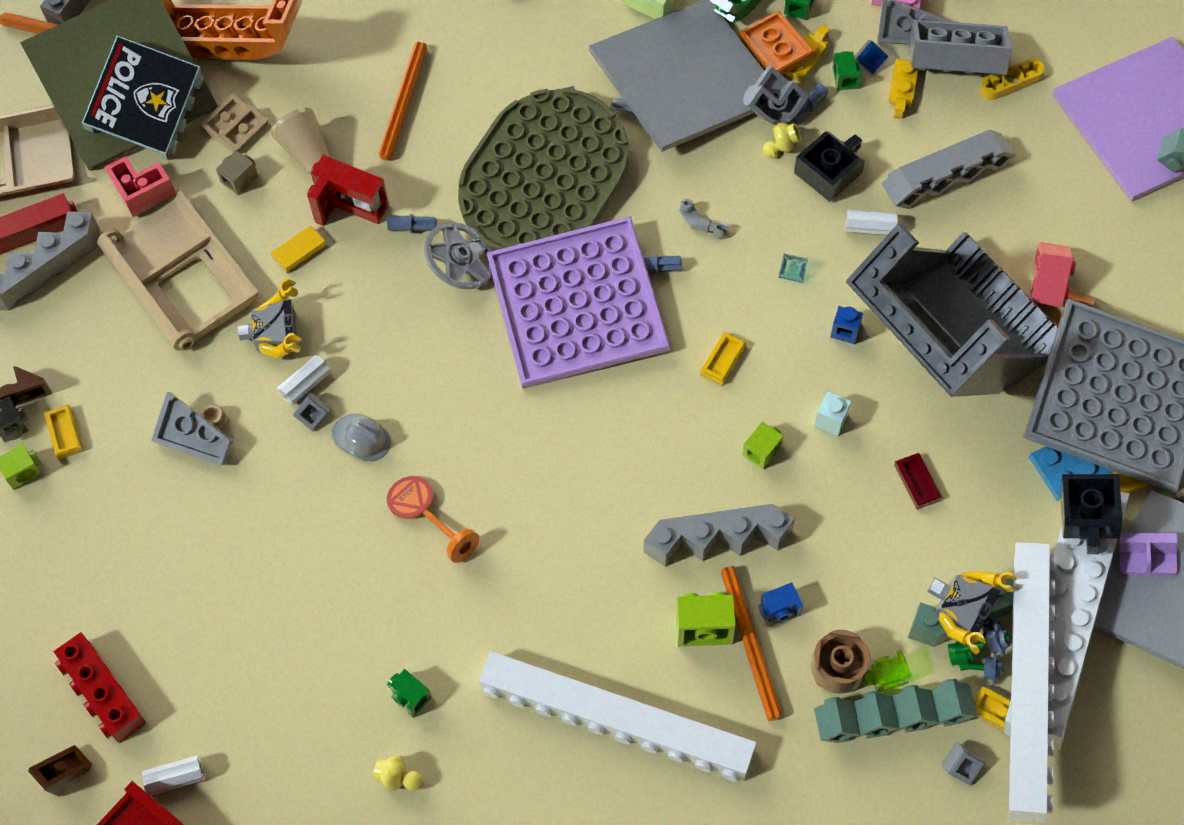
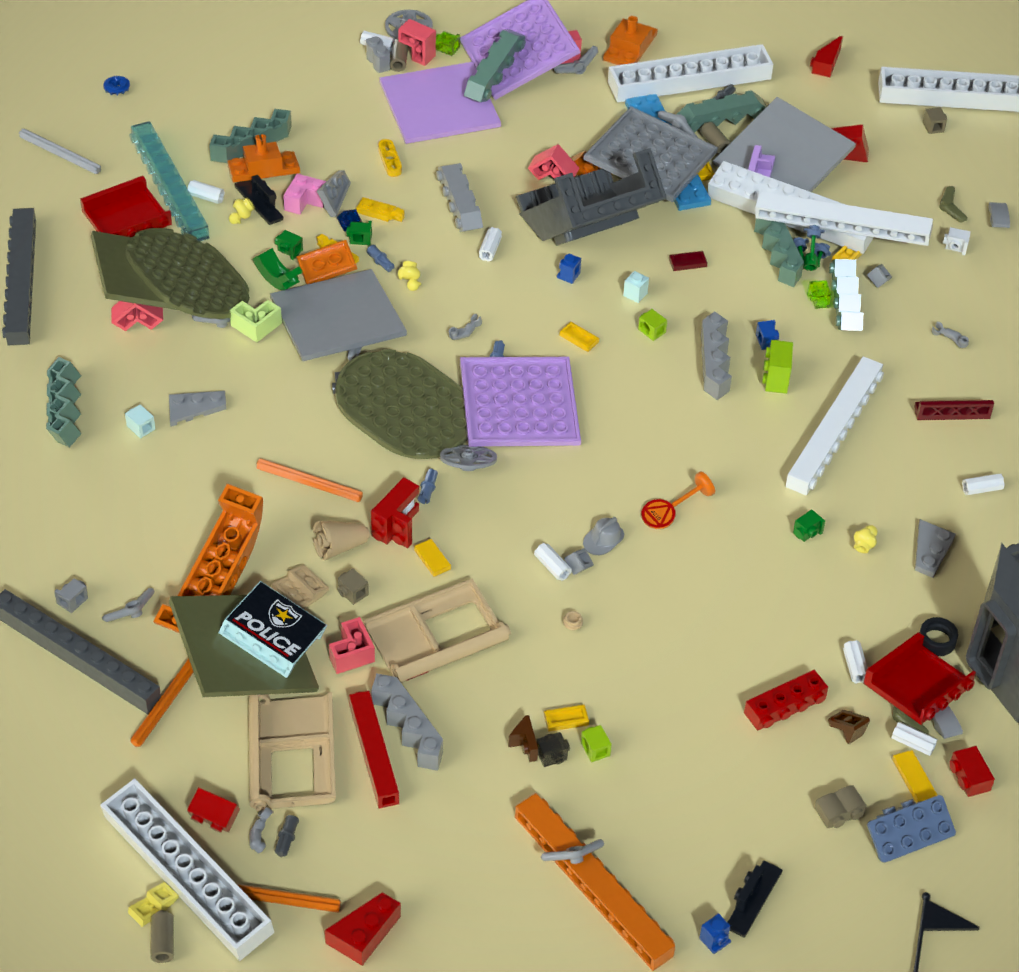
camera: 85 degrees left, 15 degrees down
(190, 432) = (586, 632): light grey wing -> none
(274, 324) = (504, 573): torso -> none
(752, 645) = (797, 355): orange axle -> none
(774, 97) = (380, 265): light grey brick -> none
(793, 268) = (517, 288): clear light blue slope -> none
(830, 164) = (441, 252): black hinge -> none
(854, 656) = (812, 312): medium nougat brick -> none
(959, 47) = (363, 170): light grey brick -> none
(967, 603) = (790, 238): torso -> none
(1091, 508) = (739, 170): black hinge -> none

